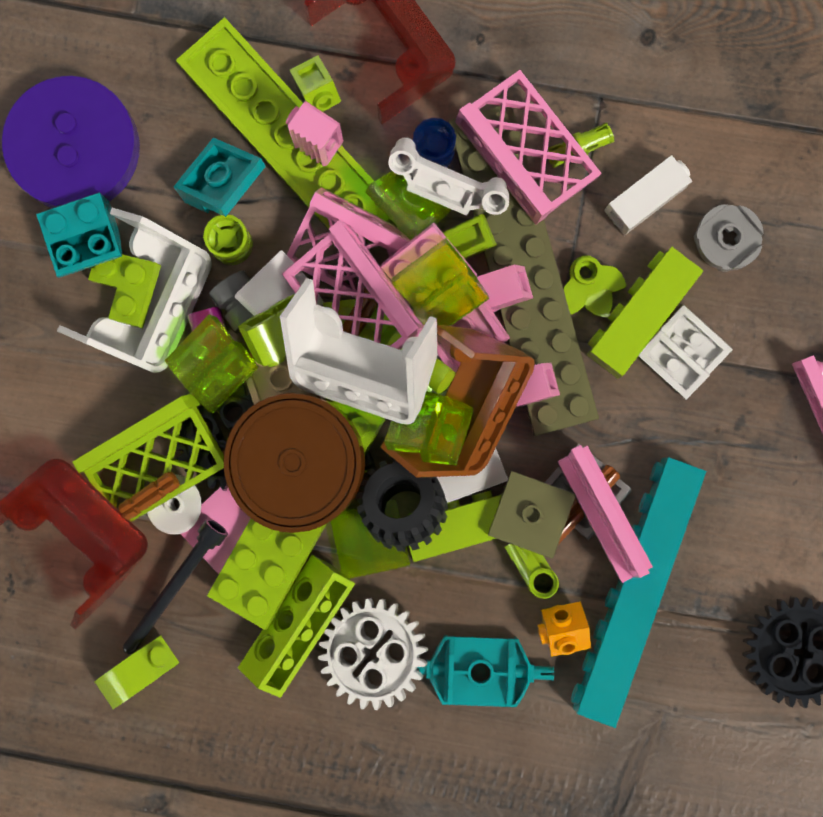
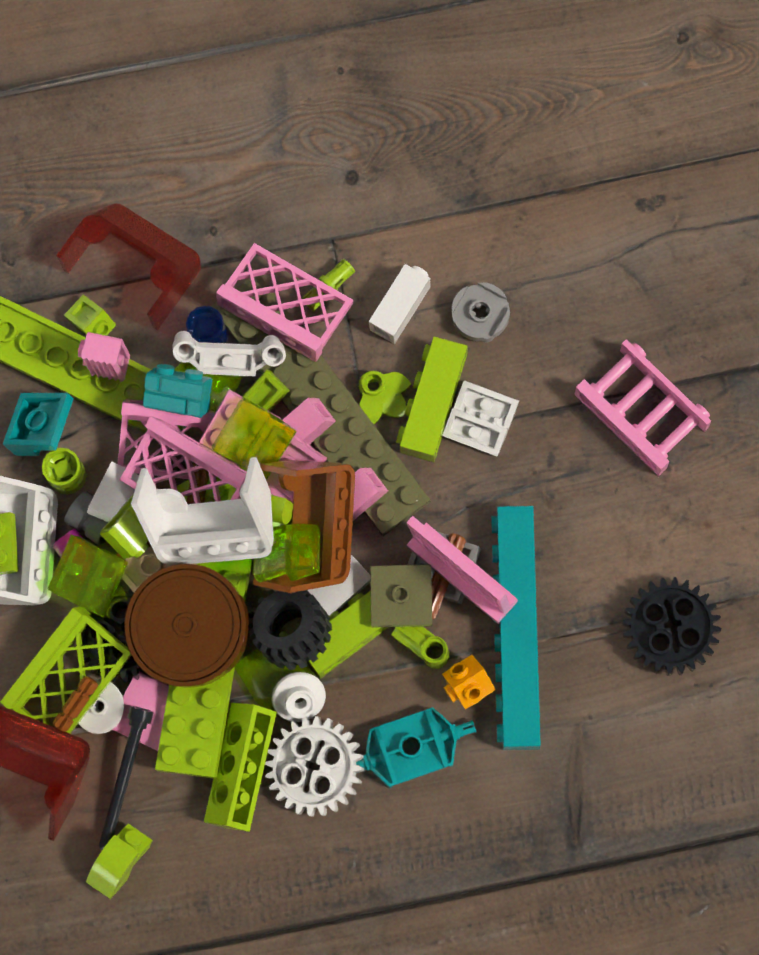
camera: 15 degrees left, 10 degrees down
(378, 203) = (177, 391): none -> teal brick
(382, 566) = (298, 686): none -> white piece

